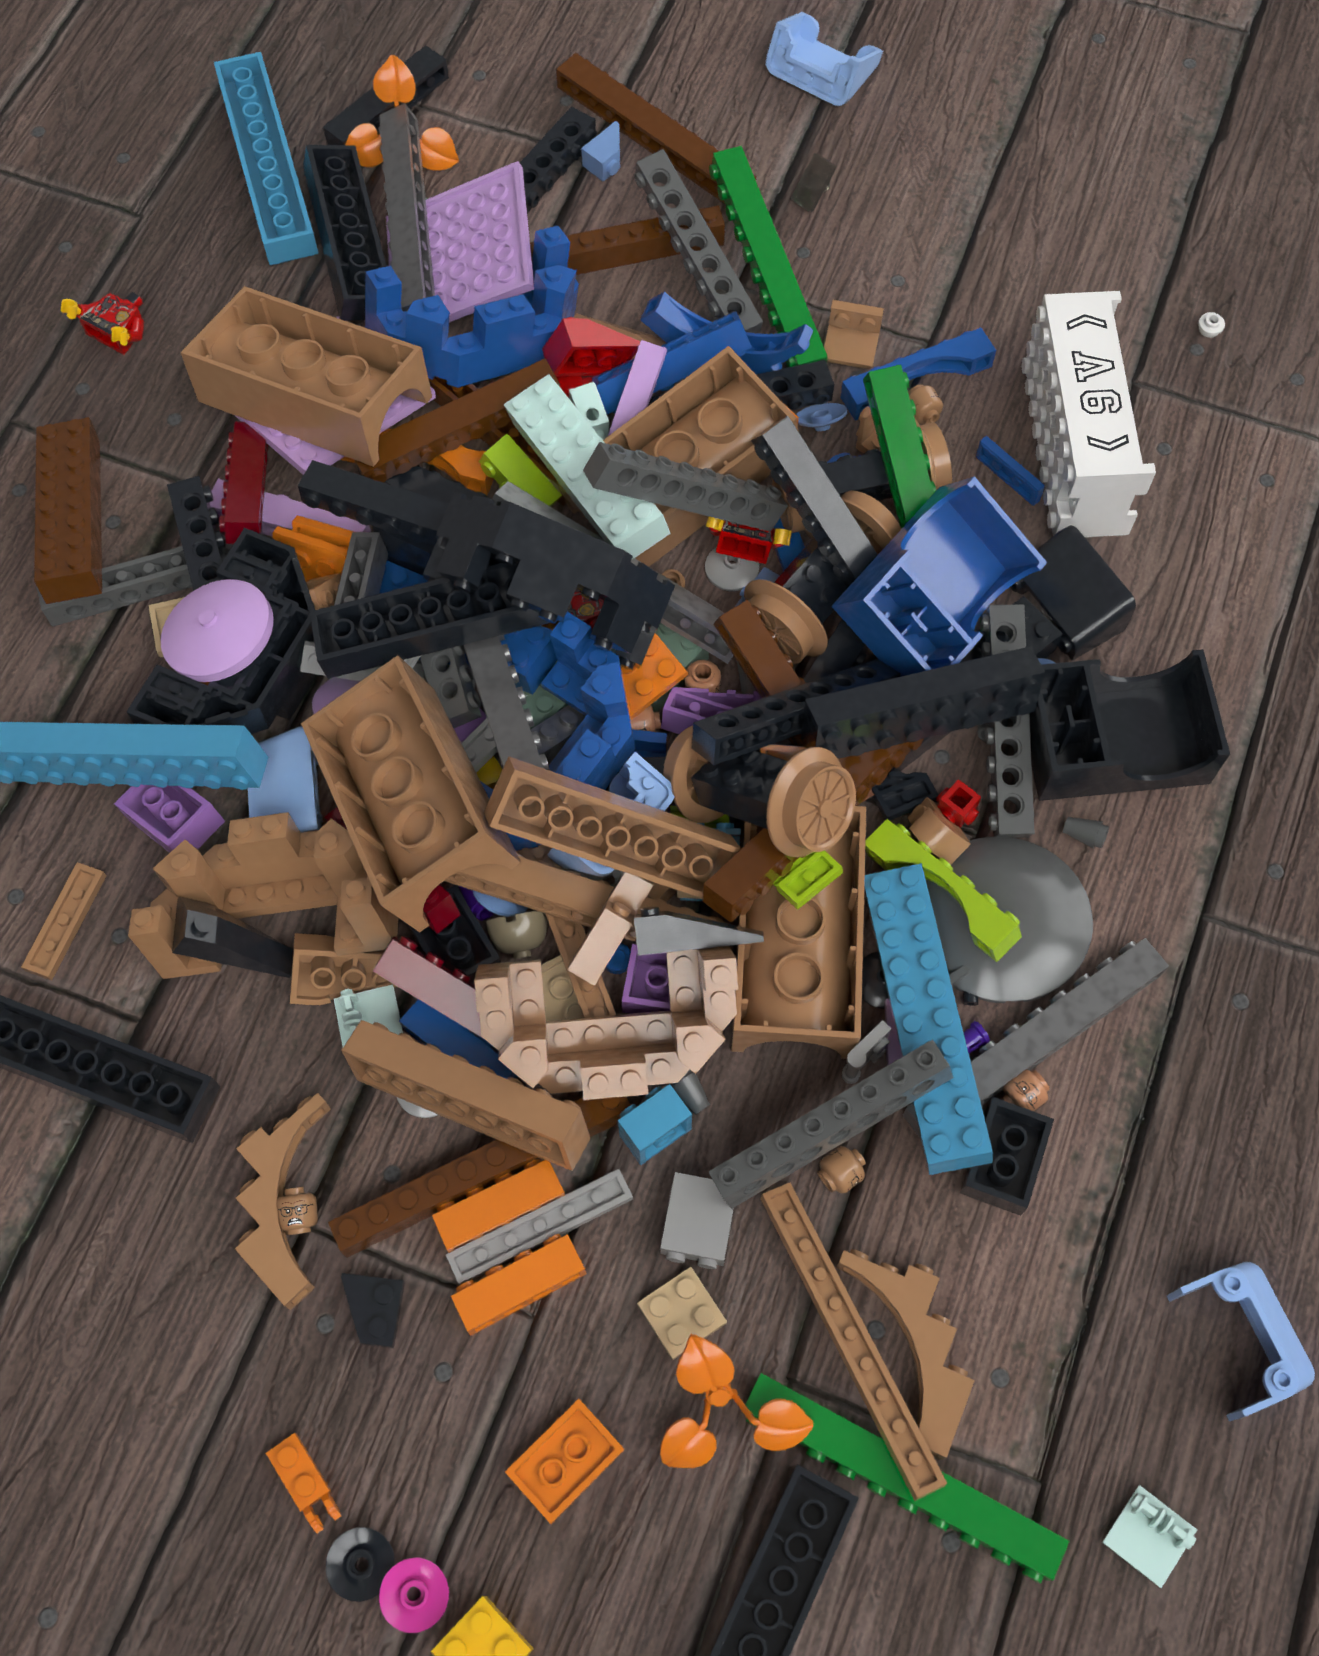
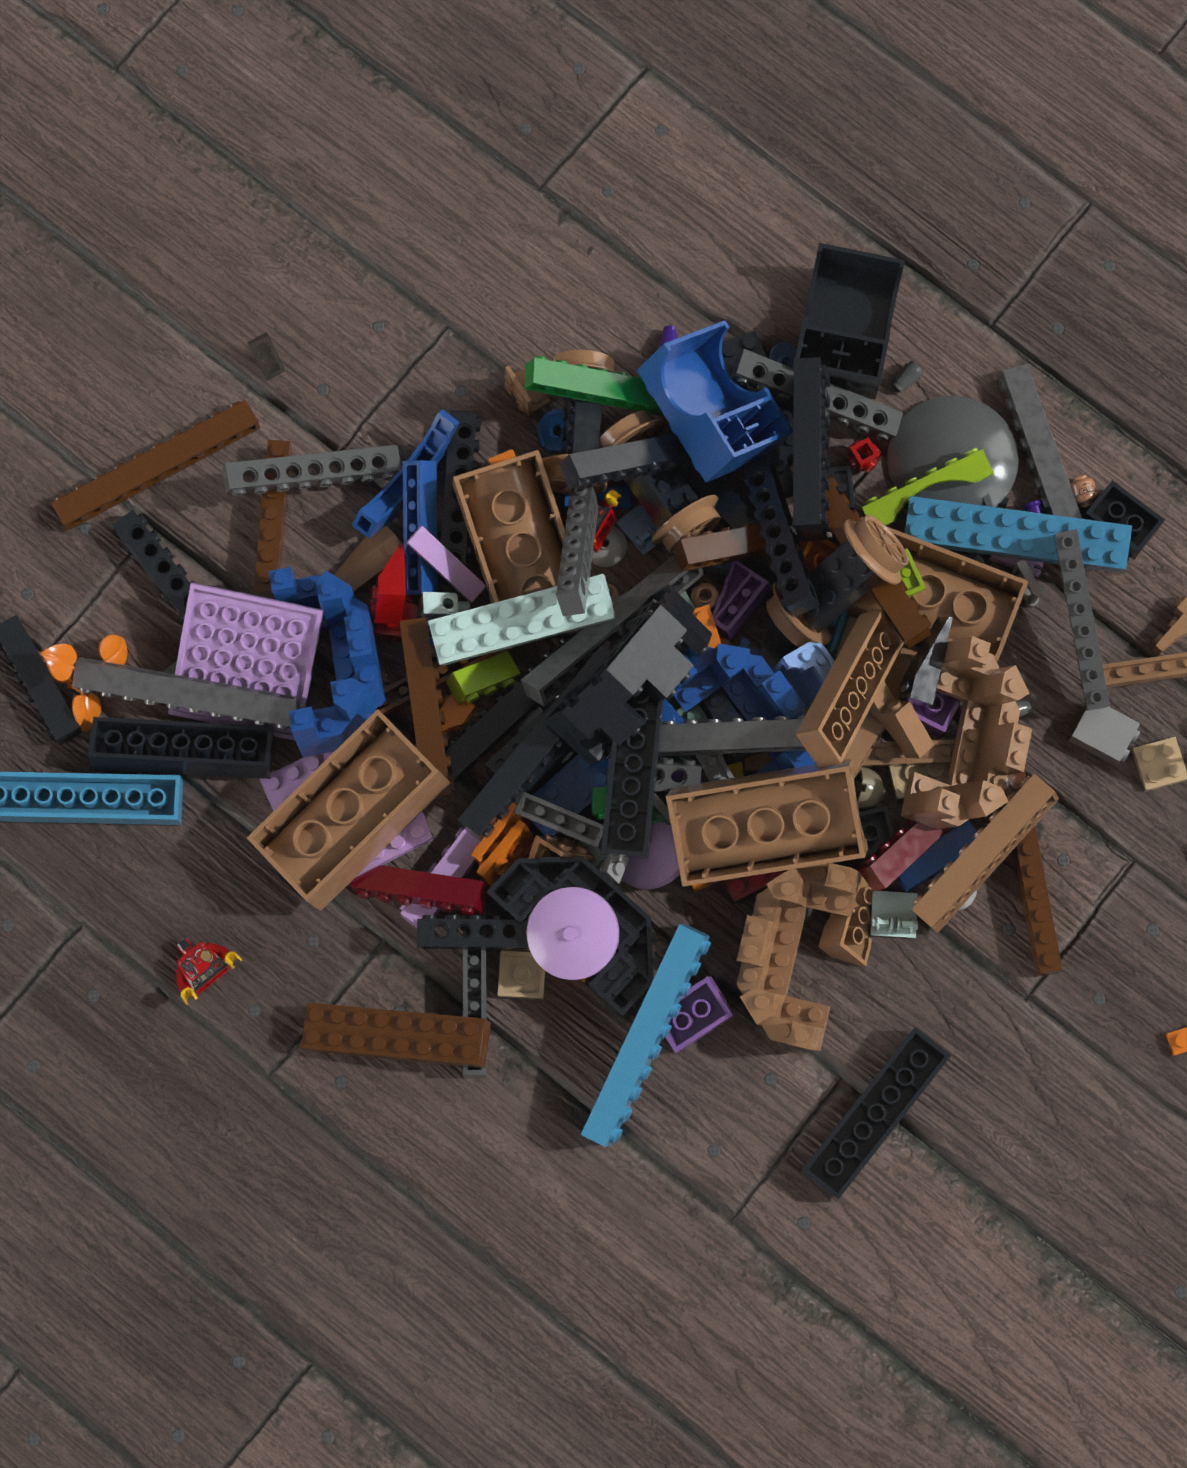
camera: 75 degrees left, 10 degrees up
(64, 921) = (750, 1114): medium nougat plate -> none
(219, 937) = (813, 993): black wedge -> none
(268, 1247) = (1039, 1021): medium nougat arch -> none
(288, 781) = (715, 917): light blue windscreen -> none
(297, 1211) = (1021, 996): medium nougat head -> none
(374, 1307) = (1099, 962): black wing -> none
(497, 1205) = (1057, 860): orange brick -> none
(518, 1284) = (1113, 862): orange brick -> none
(537, 1226) = (1078, 838): light grey plate -> none
(602, 153) = (166, 513): medium blue slope -> none
(654, 1123) = (1042, 744): dark azure brick -> none
(763, 250) = (330, 420): green brick -> none
(815, 66) = (134, 304): light blue windscreen -> none
(821, 415) = (496, 431): medium blue dish -> none
(841, 1169) = (1103, 628): medium nougat head -> none
(853, 334) = (429, 382): medium nougat bracket -> none
(927, 404) = (513, 351): medium nougat head -> none
(937, 832) = (879, 479): medium nougat brick -> none
(960, 355) = (476, 304): blue arch -> none
(1010, 471) = (595, 311): blue tile -> none
(1079, 593) = (722, 298): black windscreen -> none
(1083, 415) = (582, 241): white piece -> none
(1211, 324) = (509, 114): white plate -> none

